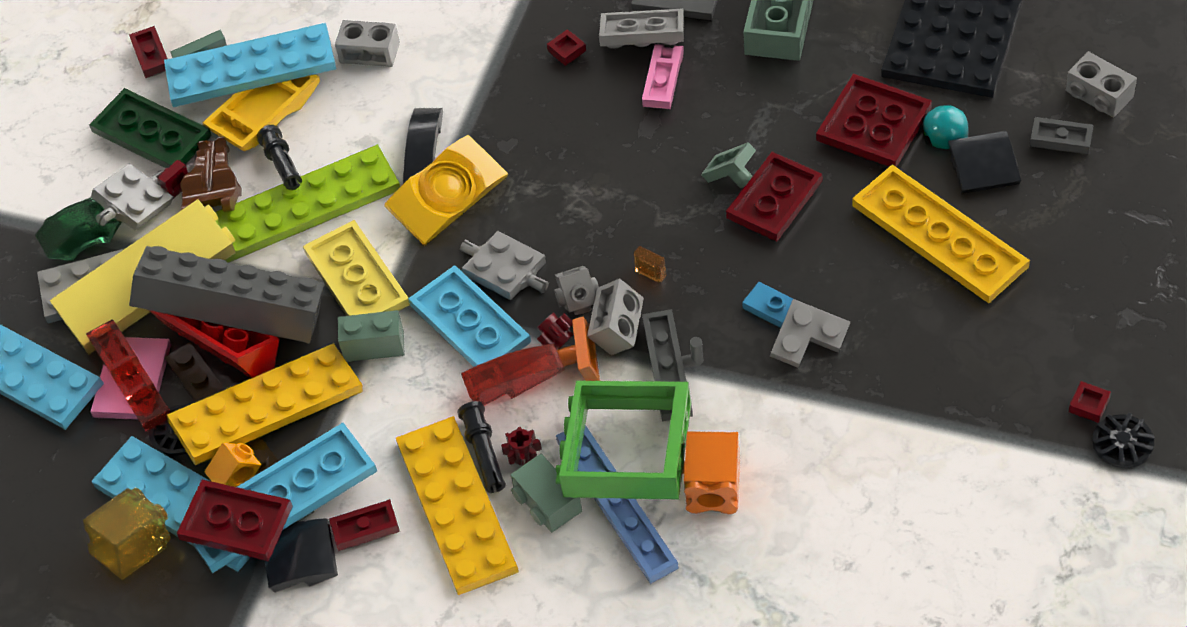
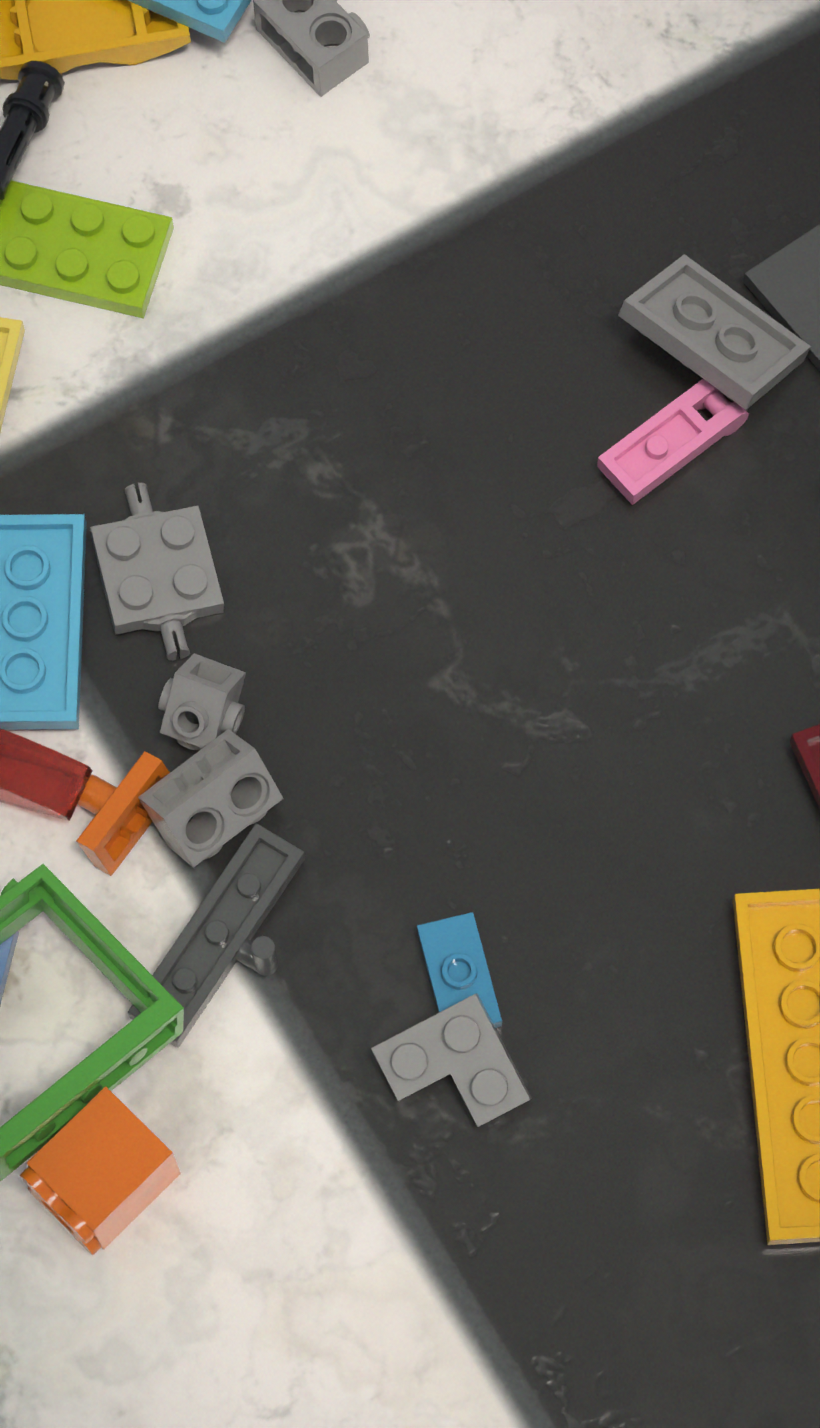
camera: 35 degrees right, 15 degrees up
(421, 140) = (219, 276): black slope -> none
(445, 189) = (191, 374): yellow slope -> none
(555, 330) = (114, 744): dark red gear -> none
(566, 47) = (581, 272): dark red plate -> none
(650, 264) = (346, 748): clear orange tile -> none
(731, 164) = (611, 684): sand green tile -> none
(774, 196) = (633, 787): dark red plate -> none

